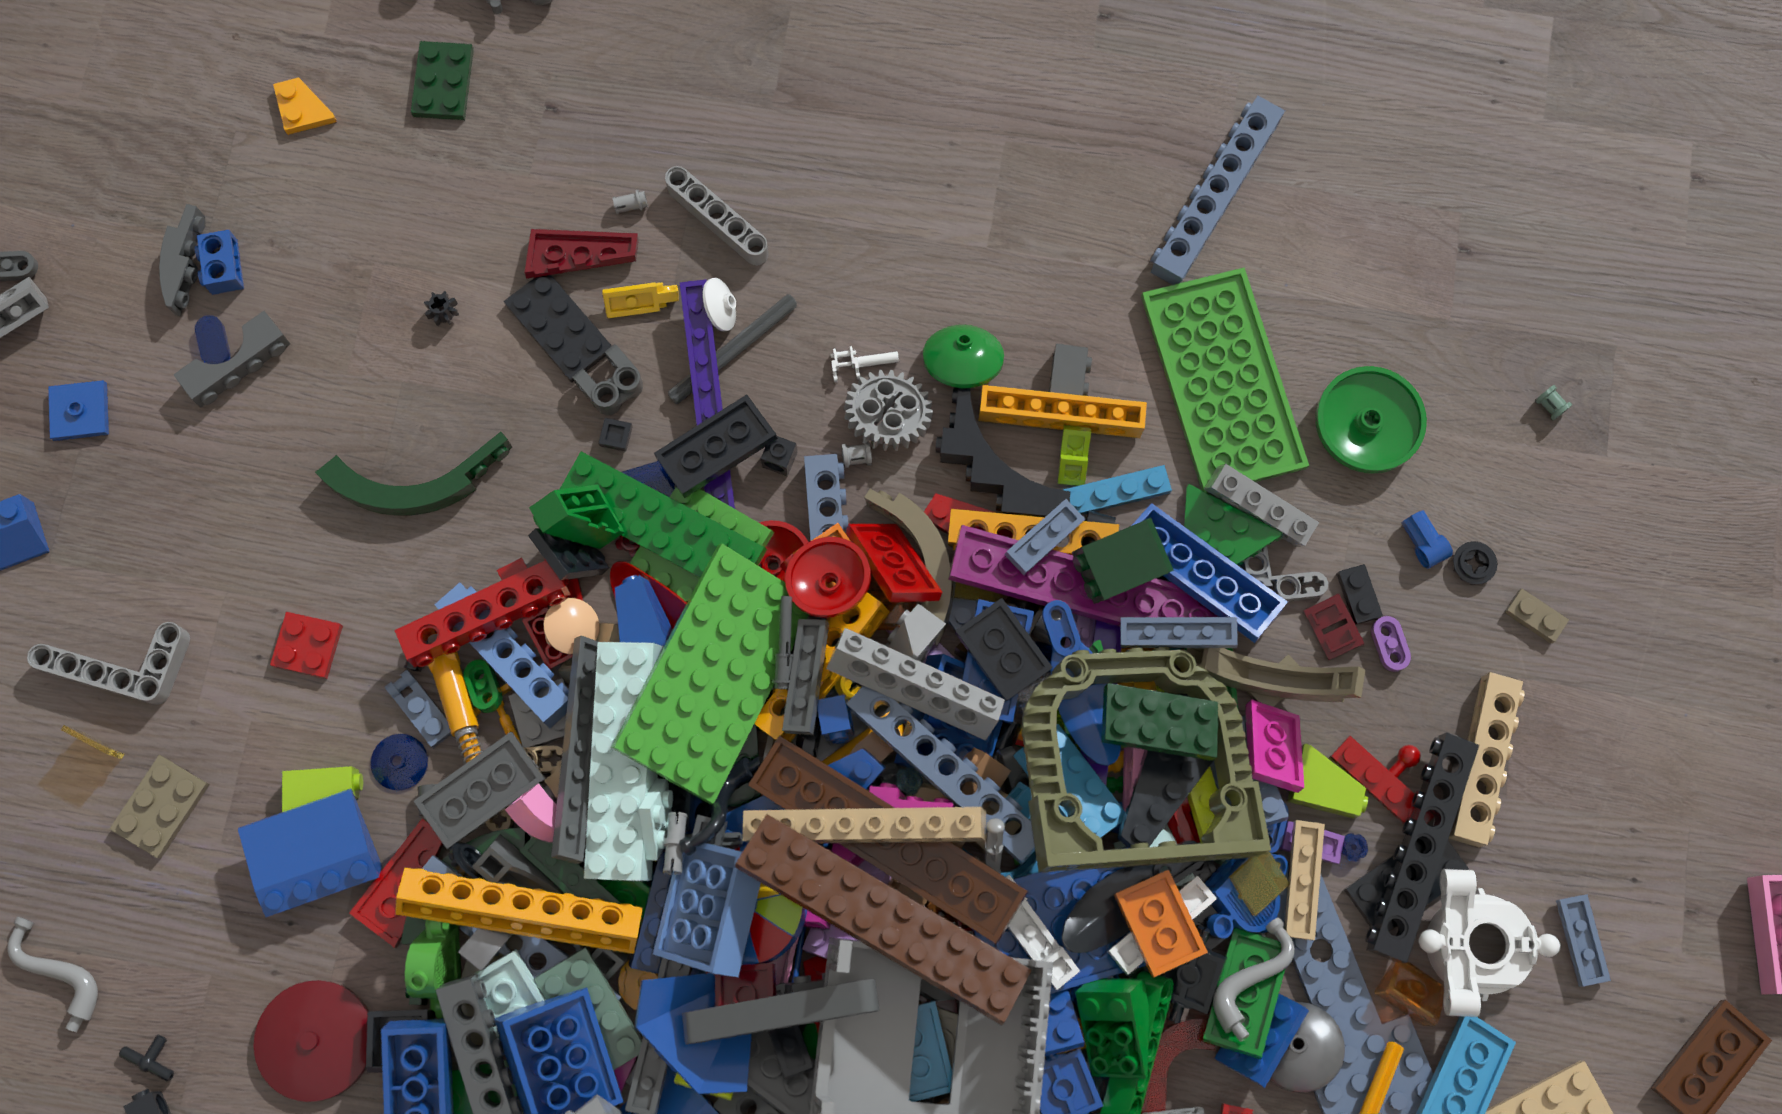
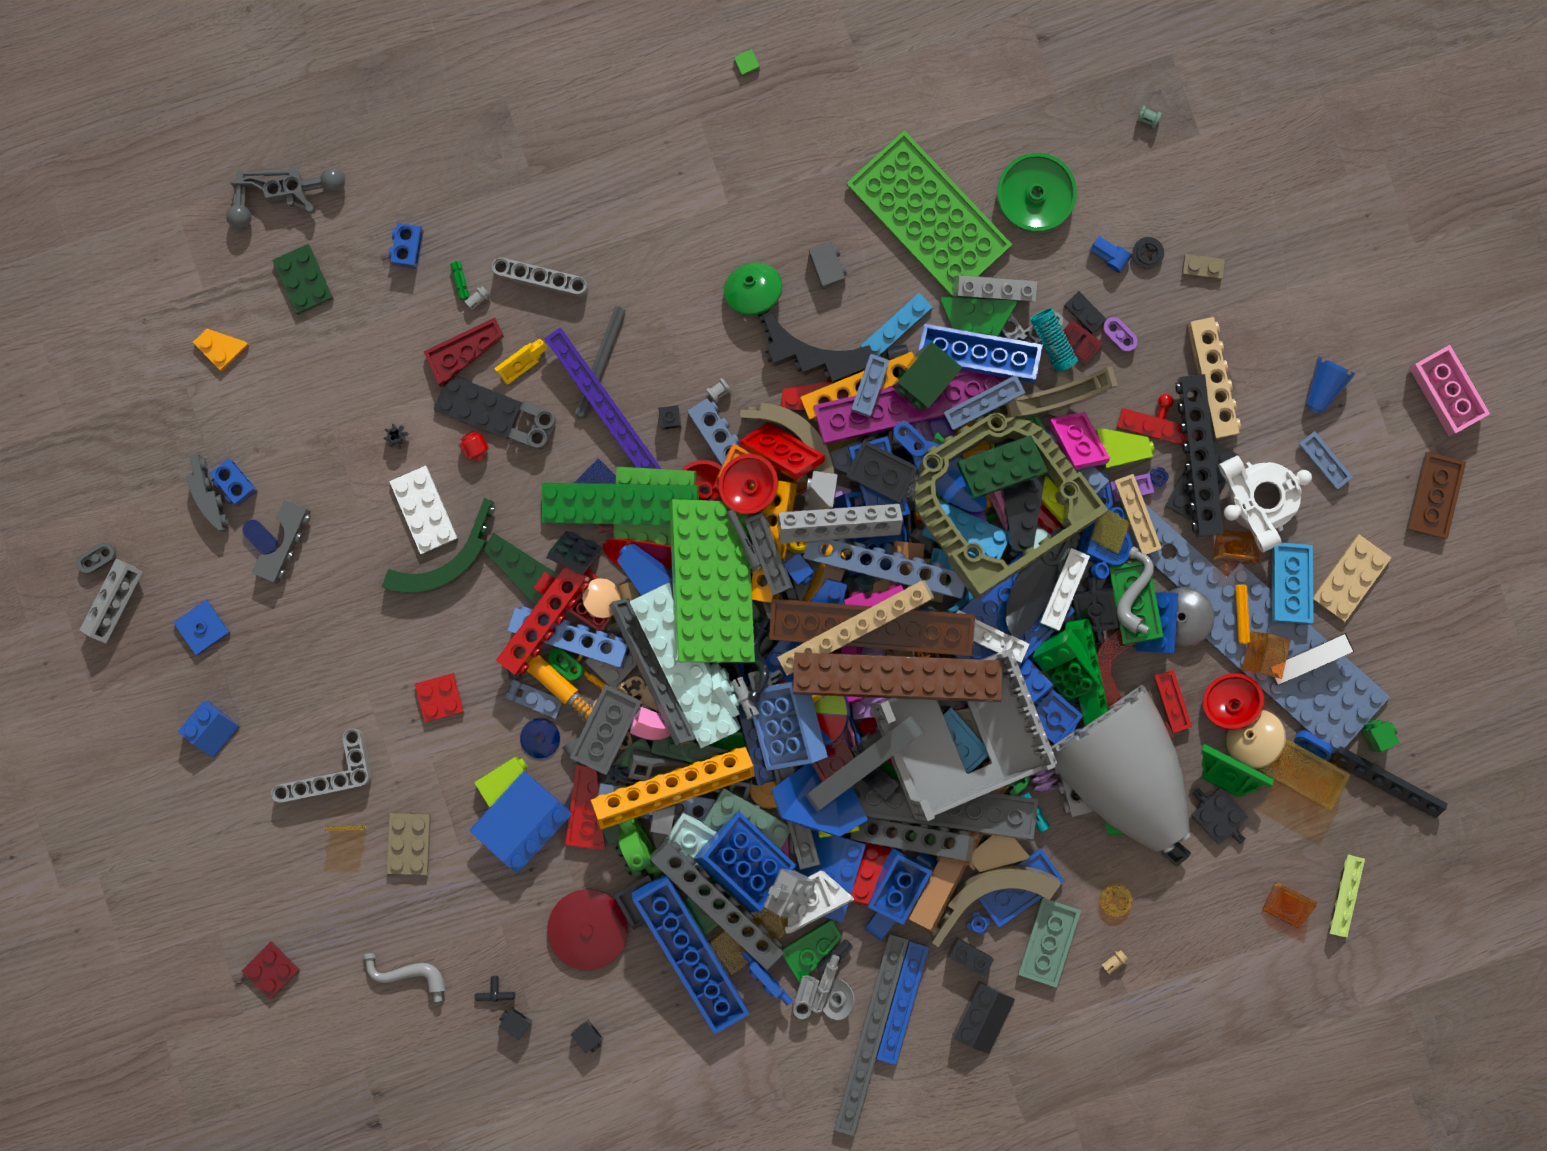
camera: 20 degrees left, 10 degrees up
(422, 411) = (423, 510): none -> white plate
(494, 533) = (517, 566): none -> dark green wing
(525, 367) = (473, 446): none -> red head
(578, 516) = (569, 528): green wedge -> none
(588, 105) = (411, 245): none -> blue brick
(615, 434) = (557, 459): black plate -> none
(621, 172) = (459, 280): none -> green axle
(715, 446) = (628, 435): black plate -> none
(719, 304) = (576, 338): white dish -> none
(863, 361) = (688, 326): white piece -> none
(908, 422) = (742, 352): light grey gear -> none
(994, 844) = (939, 597): light grey piece -> none
(1059, 409) = (836, 292): light orange brick -> none
(1074, 455) = (858, 317): lime slope -> none
(1095, 101) = (746, 62): none -> bright green tile
(1160, 923) = (1063, 589): orange plate -> none
(1259, 114) = (867, 15): sand blue brick -> none
(1304, 642) = (1043, 317): none -> teal piece
(1631, 842) = (1326, 384): none -> blue cone

